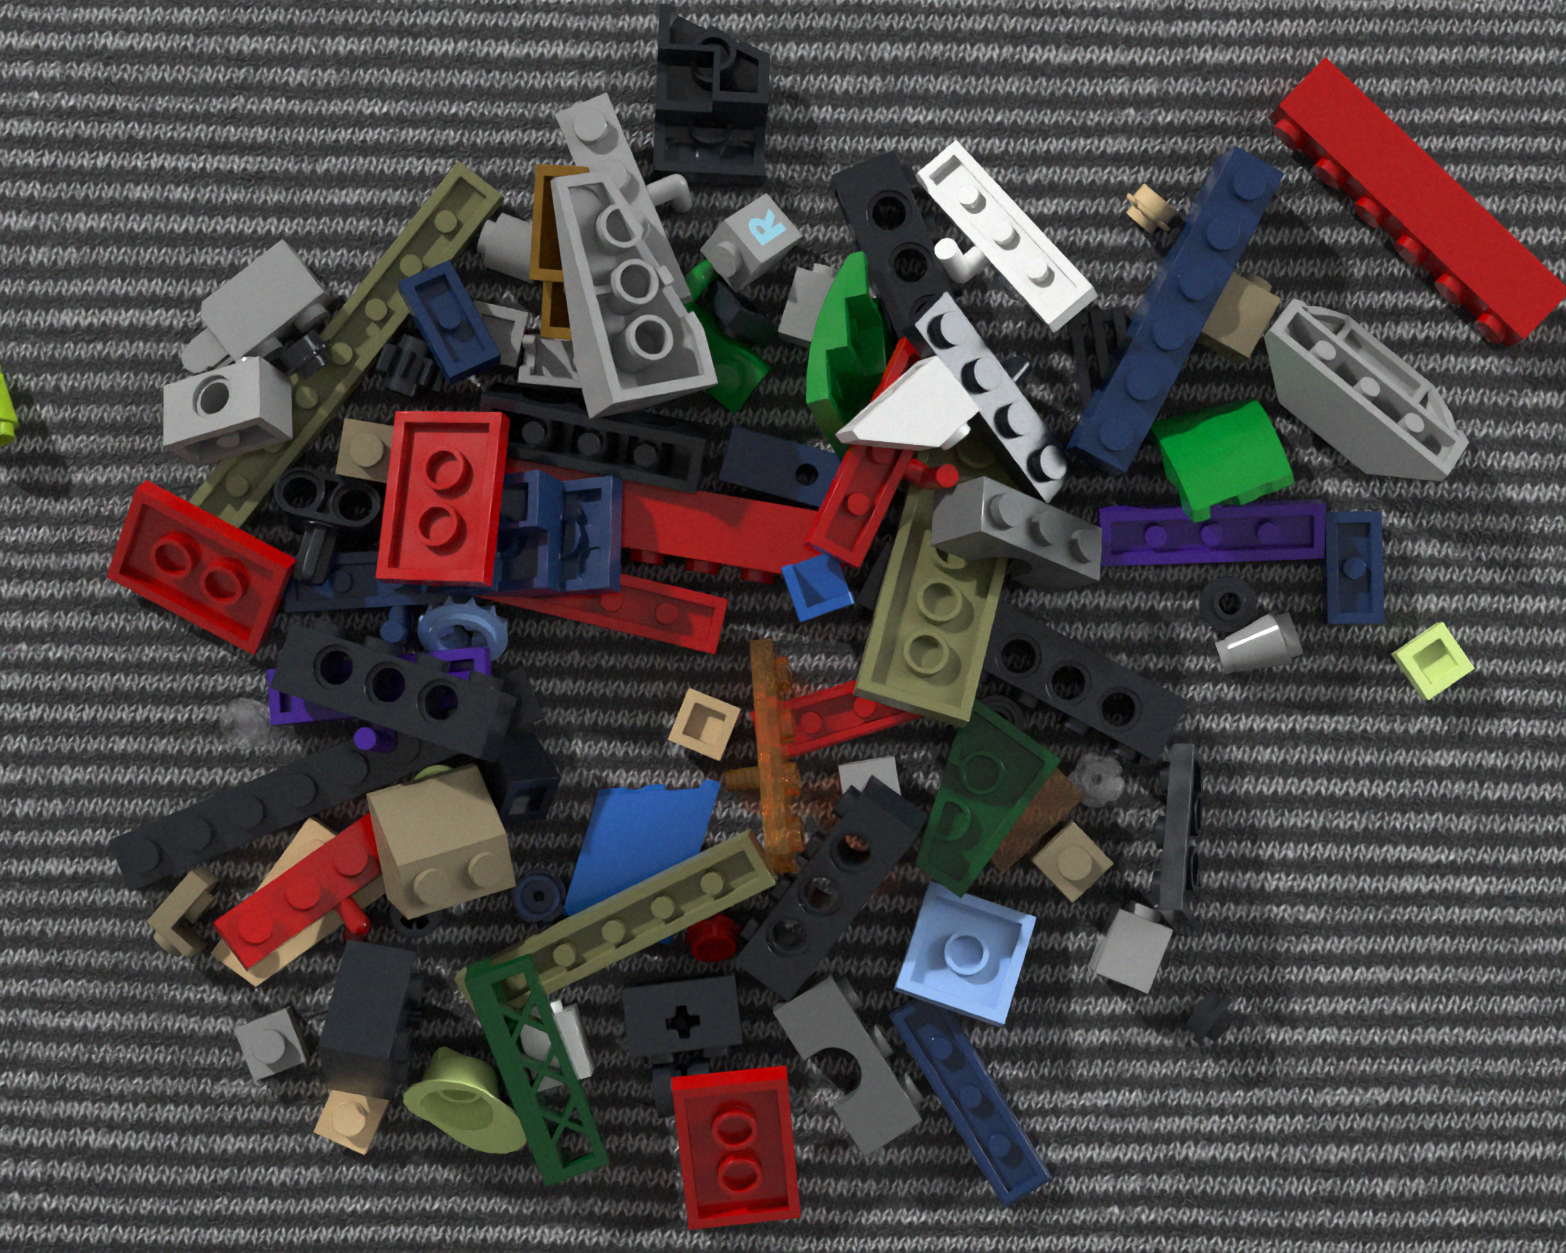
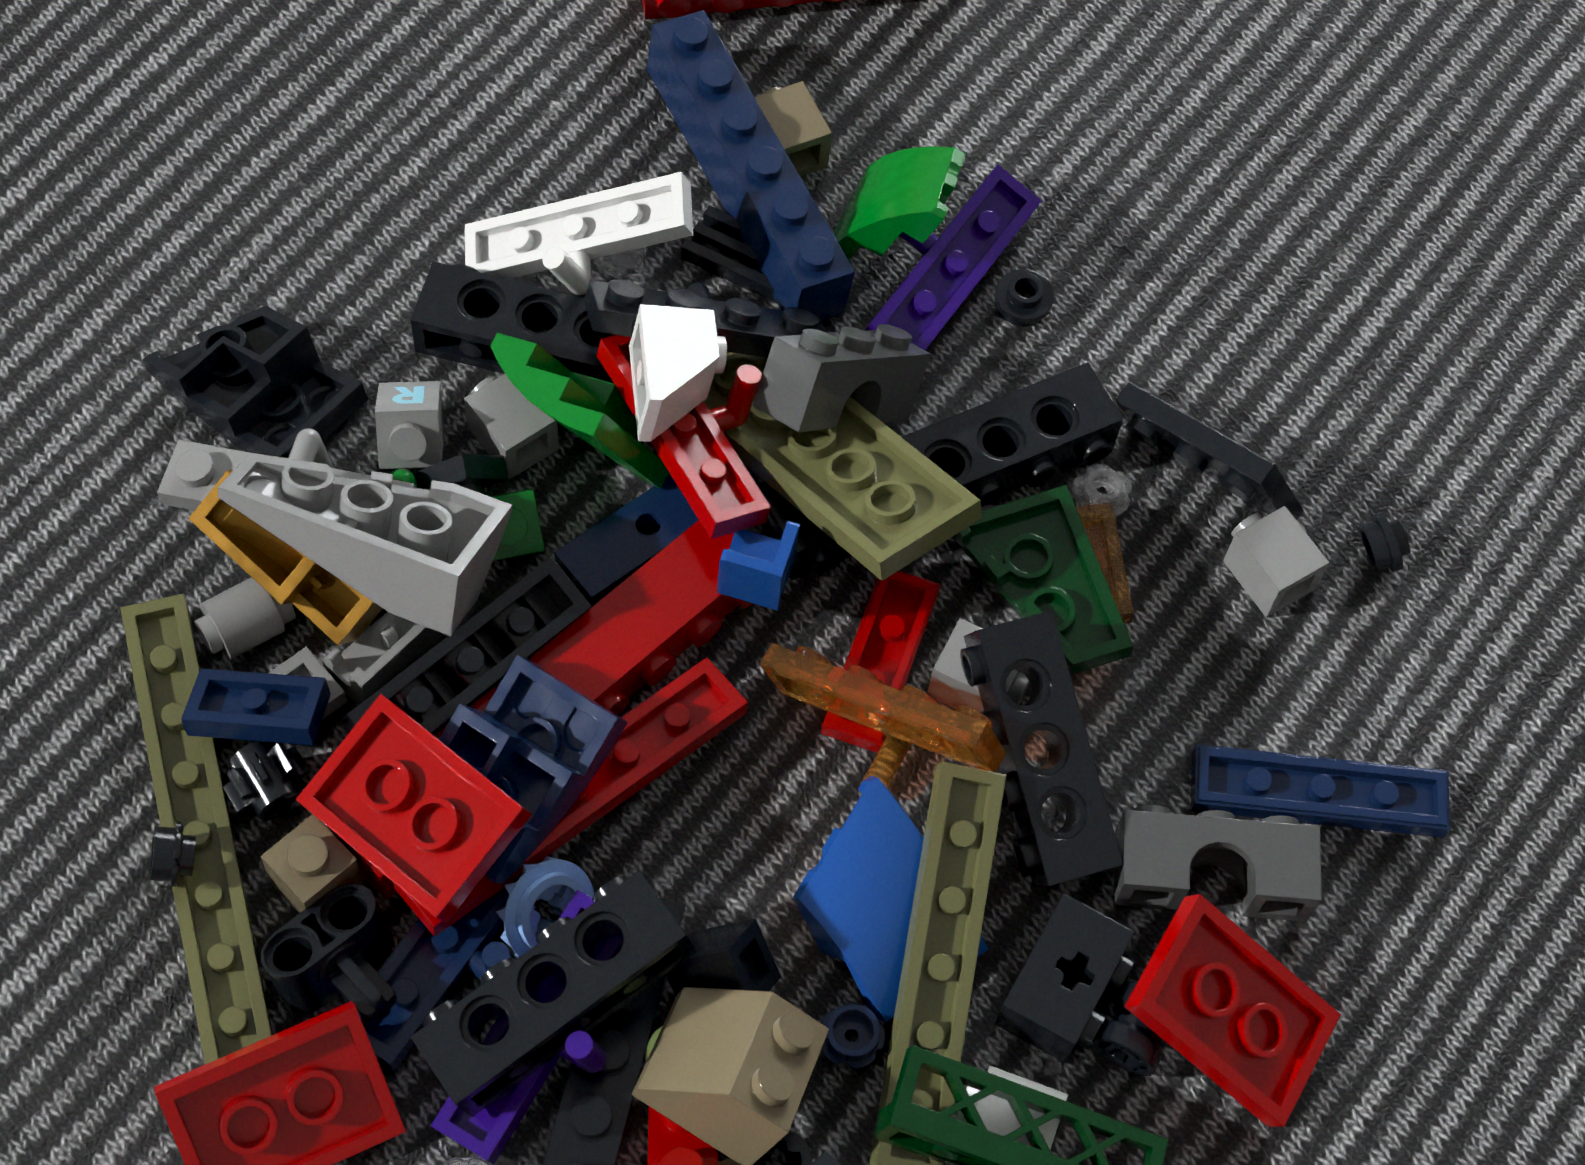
camera: 60 degrees left, 25 degrees down
(227, 411) = (158, 965): light grey brick -> none
(257, 311) = (91, 881): light grey hinge -> none
(704, 724) = (803, 768): tan plate -> none
(713, 938) = (1011, 901): red plate -> none
(965, 954) = (1185, 694): light blue plate -> none
(1070, 860) = (1161, 552): dark tan brick -> none
(1150, 209) = (647, 133): tan plate -> none
(1260, 644) = (1079, 291): light grey cone -> none
(1353, 568) = (1069, 190): dark blue plate -> none
(1361, 395) = (933, 91): light grey wedge -> none
(1432, 661) = (1189, 185): yellowish green plate -> none

